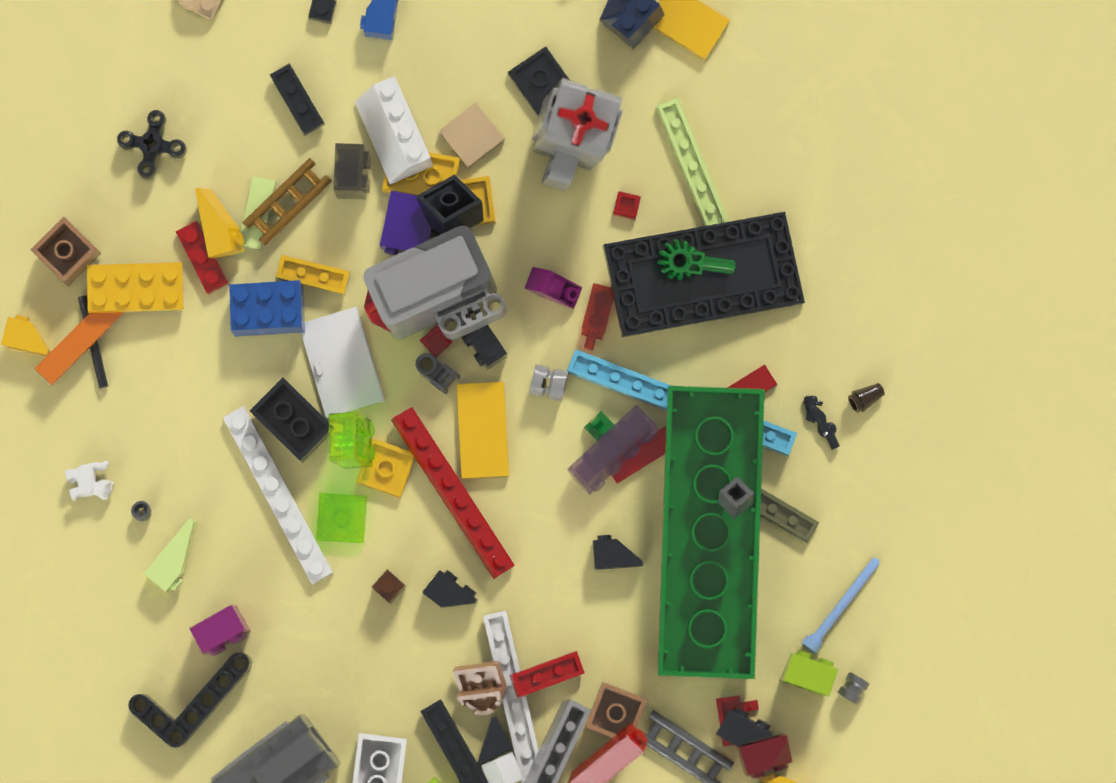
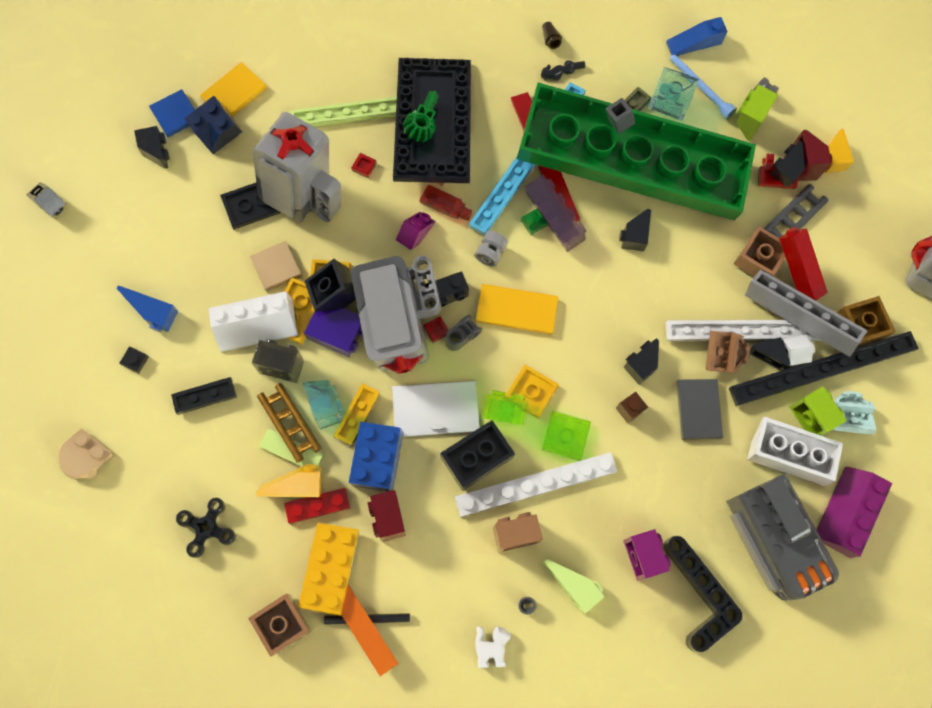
camera: 85 degrees left, 10 degrees down
(24, 336) = (347, 681): yellow slope -> none
(202, 336) = (387, 516): none -> dark red brick
(213, 481) = (517, 532): none -> medium nougat brick
(315, 234) = (324, 406): none -> clear light blue slope
(407, 668) = (699, 409): none -> dark grey tile
(452, 492) = (562, 342): red plate -> none
(547, 674) = (724, 300): red plate -> none
(814, 567) = (673, 93): none -> clear light blue slope
(909, 586) = (702, 36): none -> blue slope

